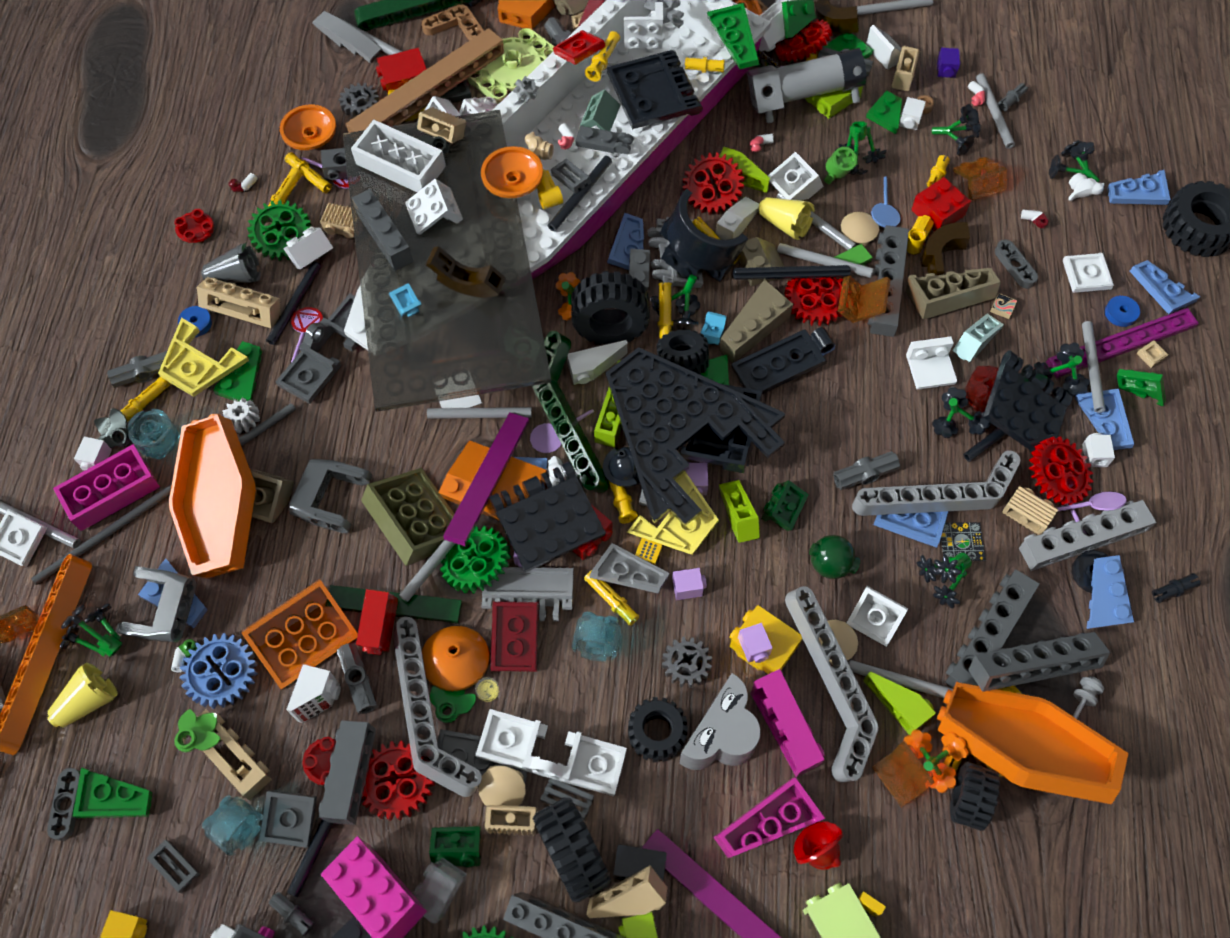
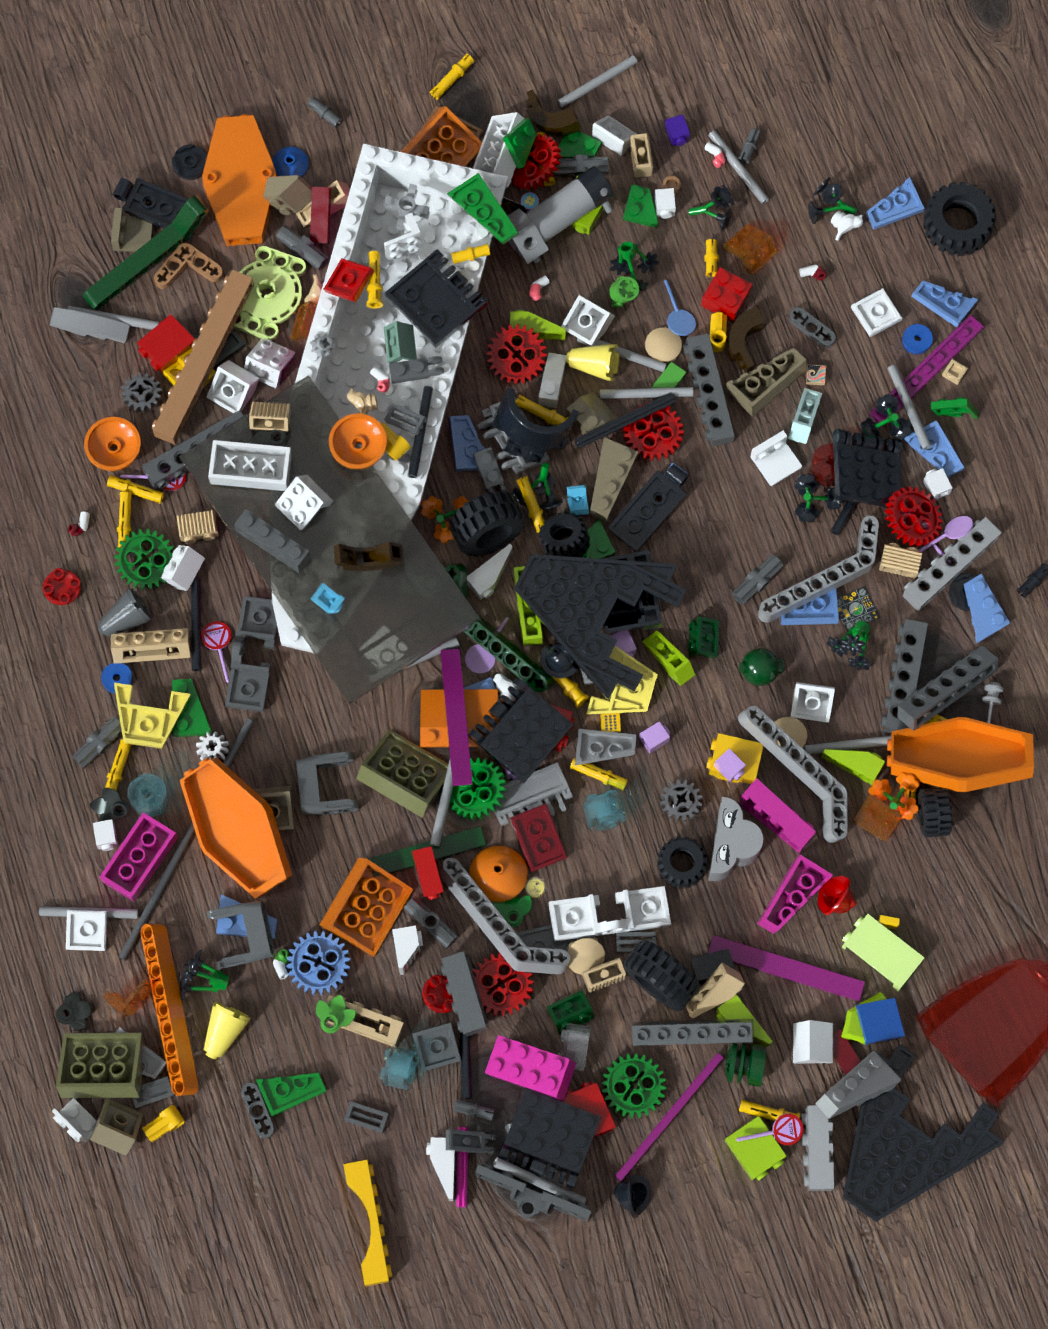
camera: 25 degrees left, 10 degrees up
(863, 301) = (696, 422): clear orange bracket -> none

